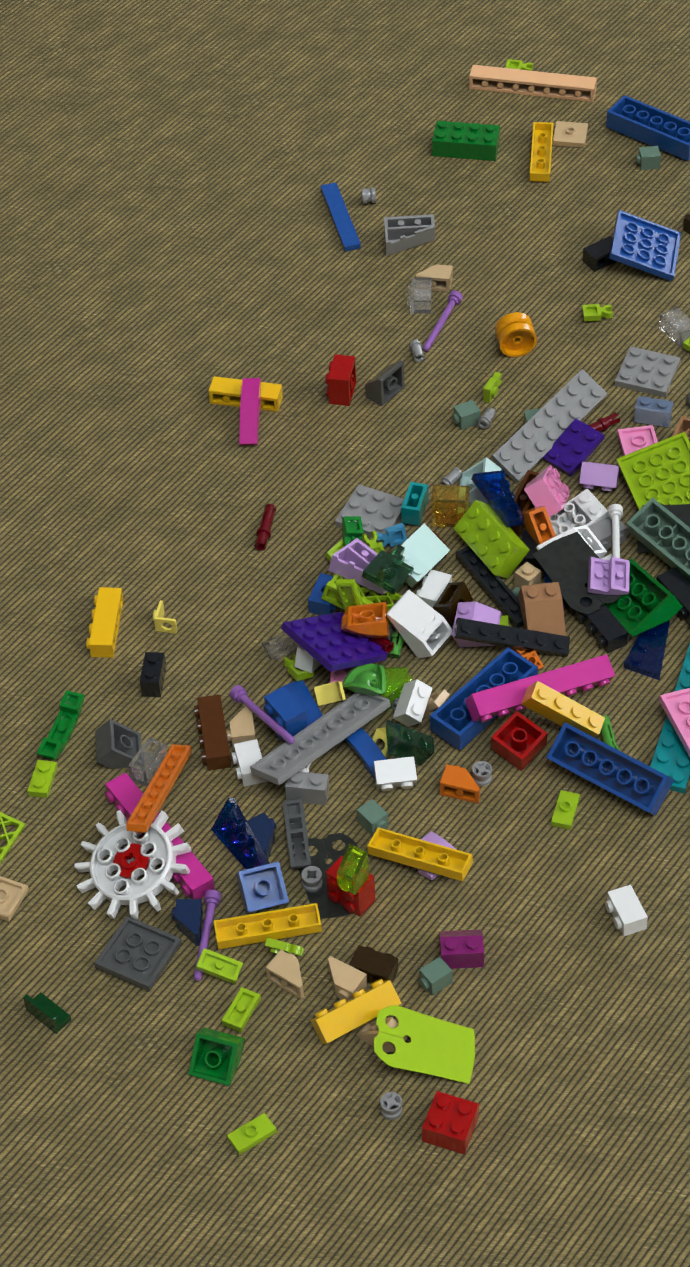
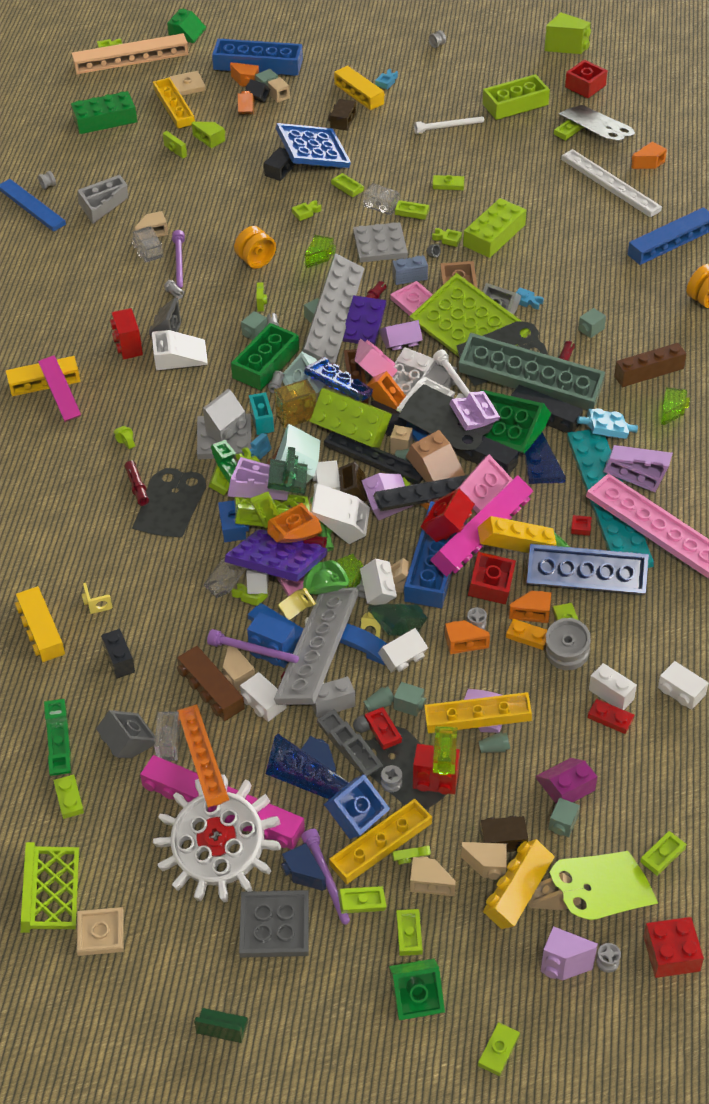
camera: 30 degrees left, 0 degrees up
(280, 561) = (169, 511): none -> pearl dark grey piece
(283, 478) = (125, 435): none -> lime piece
(318, 822) = (360, 724): none -> dark grey hinge
(333, 833) = (383, 728): none -> red plate
(346, 807) = (381, 698): none -> sand green cone
(352, 1085) = (567, 955): none -> lavender slope
(373, 494) = (224, 416): none -> slope
(379, 413) = (177, 350): none -> white slope
(423, 888) = (495, 743): none -> sand green cone
(455, 448) = (264, 356): none -> green brick
(501, 1044) = (663, 853): none -> lime plate
(505, 665) = (448, 515): none -> red brick
(512, 198) = (174, 144): none -> lime plate
(521, 806) = (527, 634): none -> light orange plate
(539, 782) = (531, 607): none -> orange slope
(543, 909) = (611, 716): none -> red plate
(544, 828) = (567, 644): none -> light grey wheel
(555, 197) = (208, 133): none -> lime slope
(559, 884) = (612, 687): none -> white brick
(573, 648) = (485, 482): none -> bright pink plate
(579, 358) = (319, 251): none -> clear neon green slope
(607, 68) = (187, 23): none -> green slope
(611, 176) = (246, 102): none -> orange slope
(631, 166) = (259, 90): none -> black brick
(632, 141) = (243, 72): none -> orange slope
(641, 726) = (581, 525): none -> red plate
(655, 171) = (279, 89): none -> tan brick
(655, 299) = (347, 185): none -> lime plate

